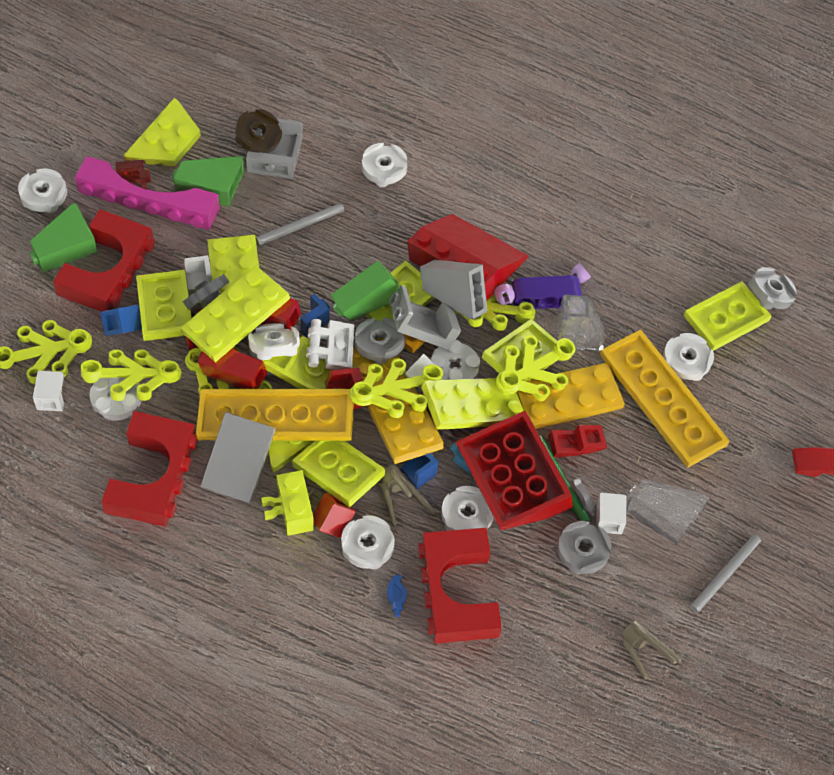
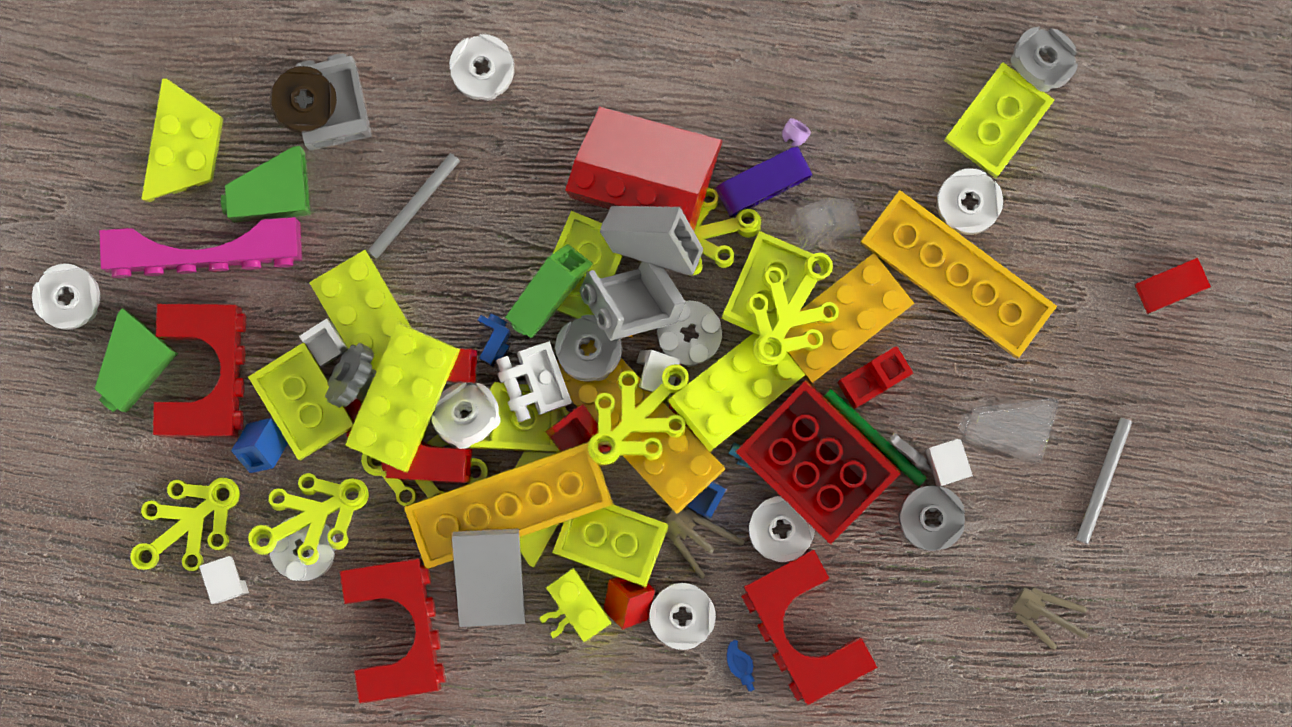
camera: 15 degrees left, 25 degrees up
(133, 172) = (162, 221): clear red bracket -> none
(501, 289) = (714, 211): lavender hinge -> none

